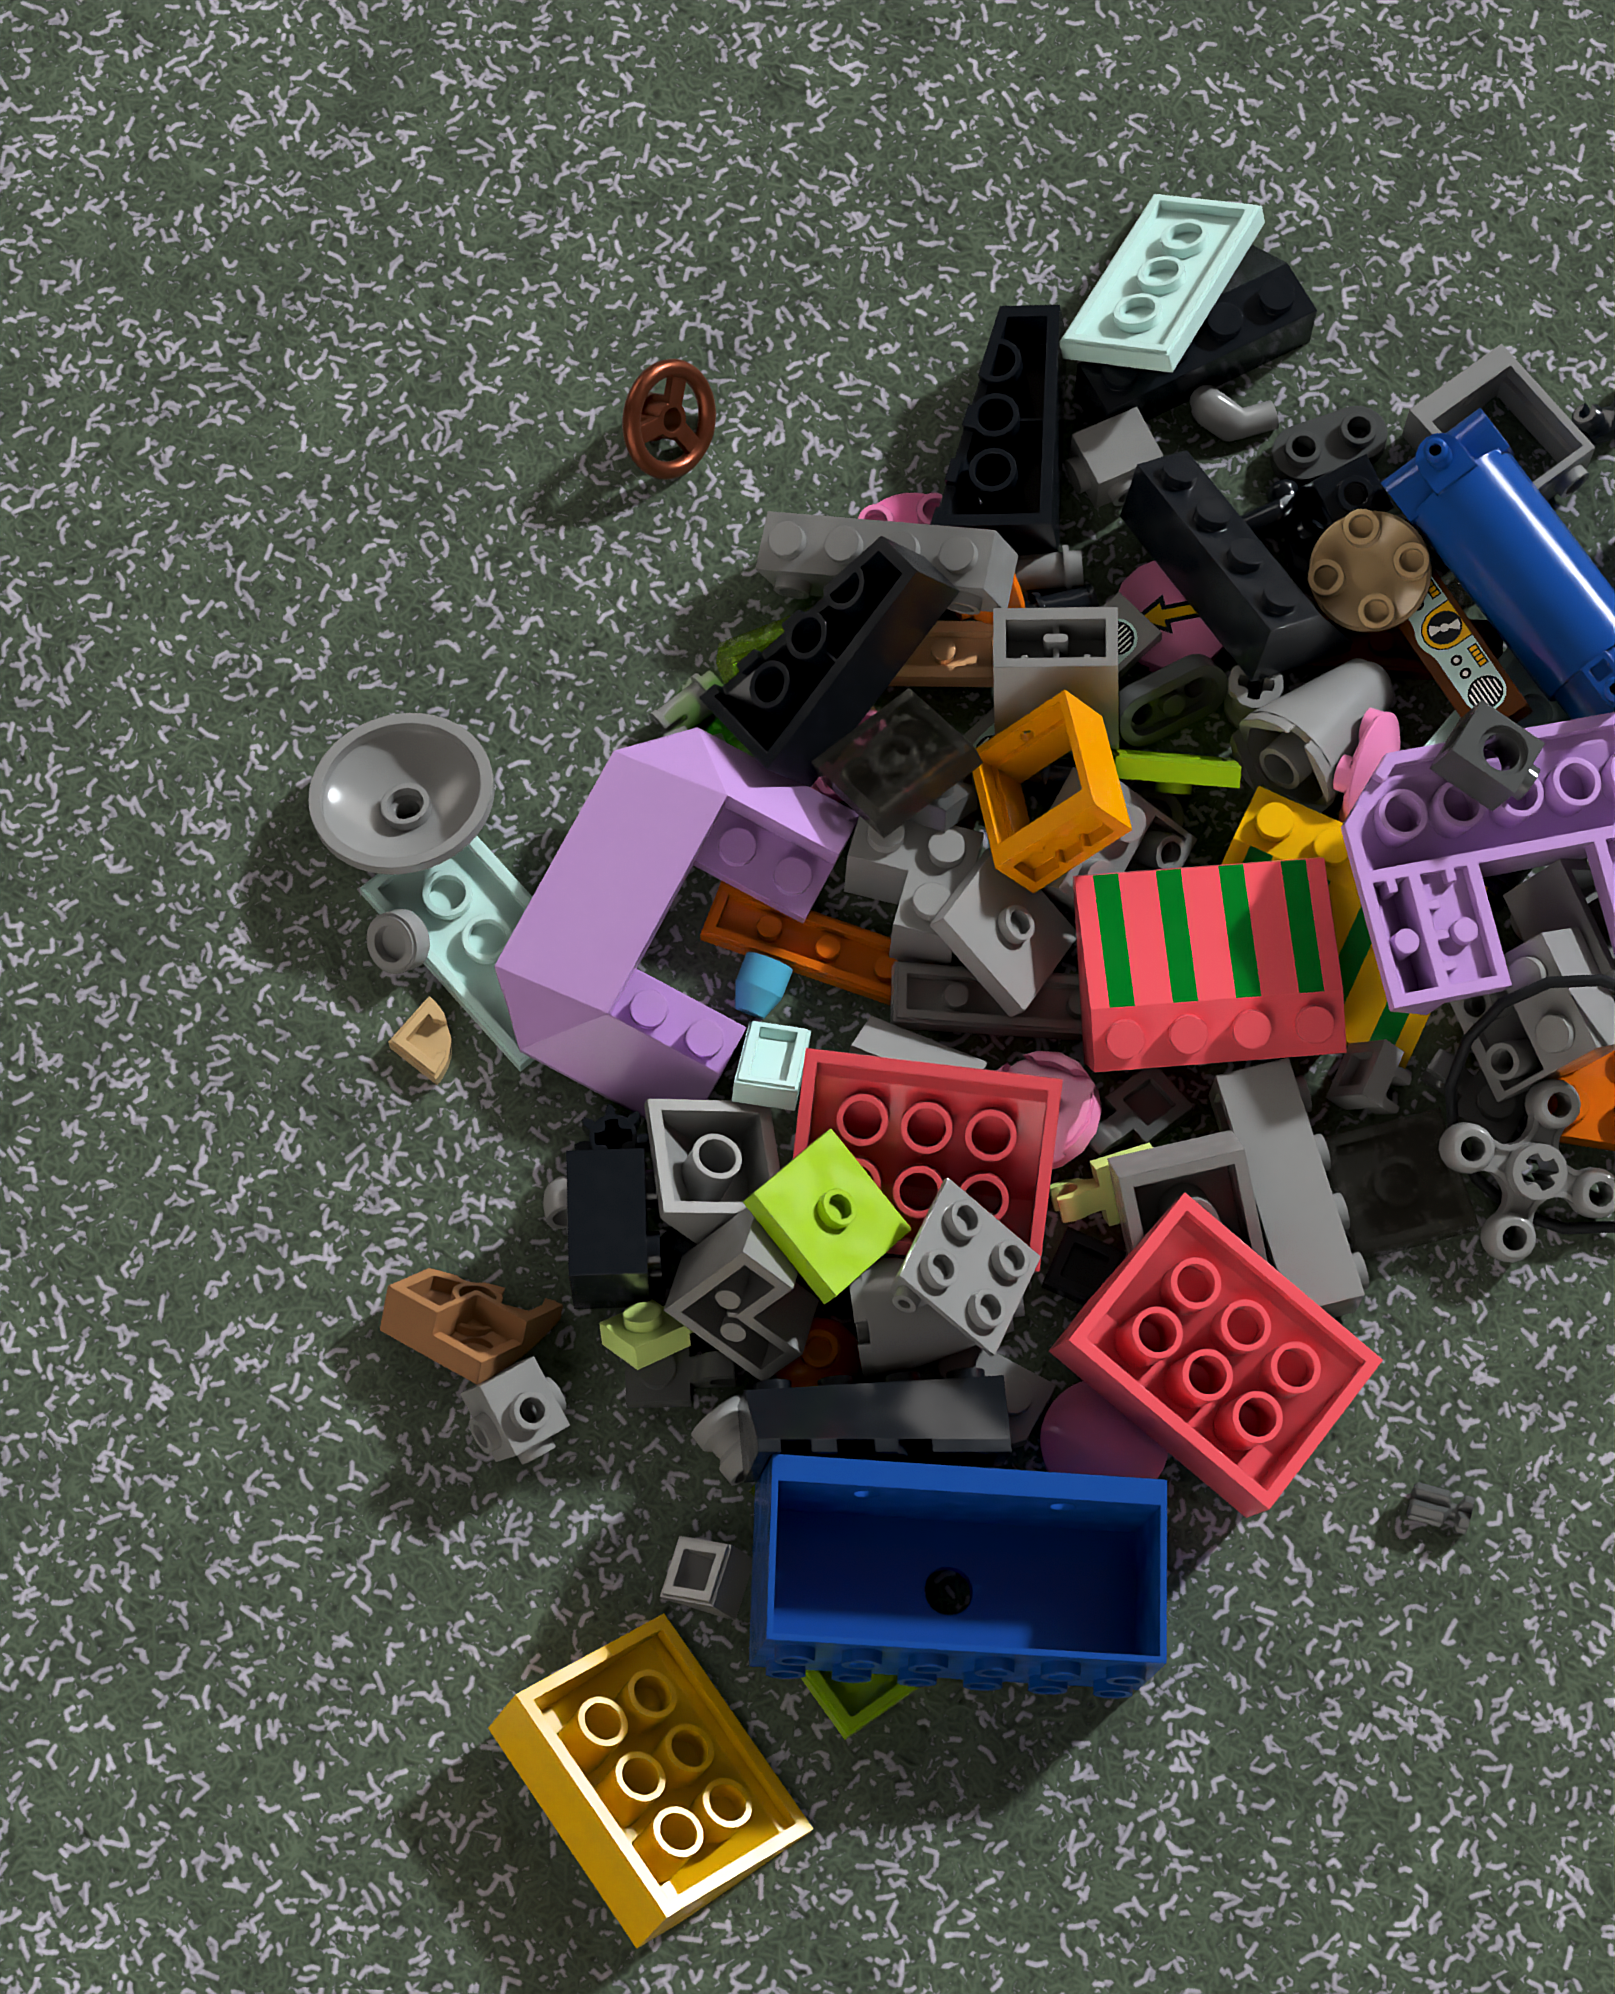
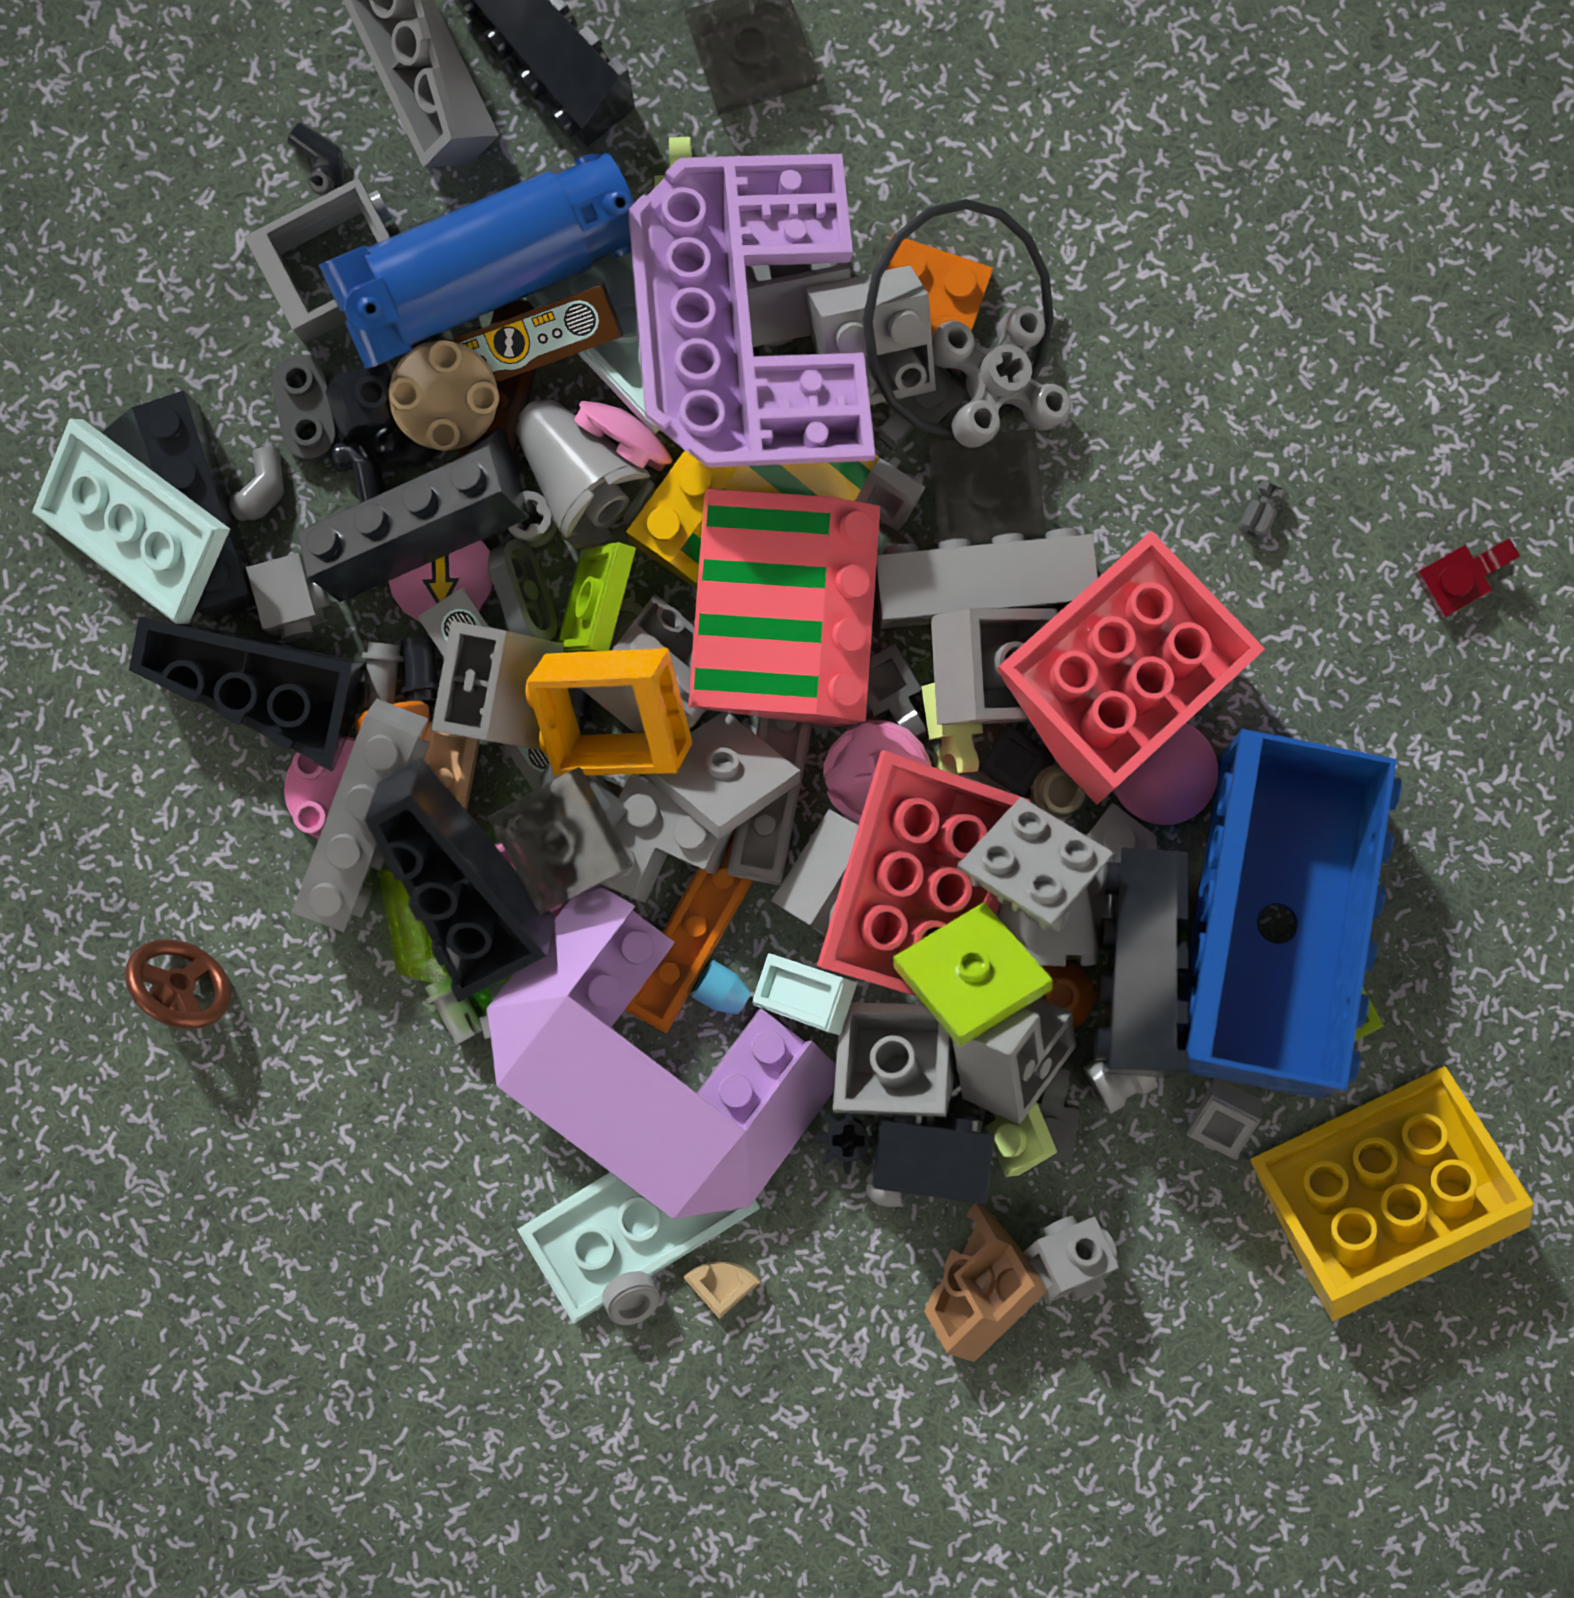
camera: 75 degrees left, 15 degrees up
(399, 769) = (475, 1296): light grey dish -> none
(1051, 1316) = (1056, 792): none -> dark tan plate
(1407, 1756) = (1460, 578): none -> dark red plate
(1464, 764) = (663, 346): dark grey brick -> none

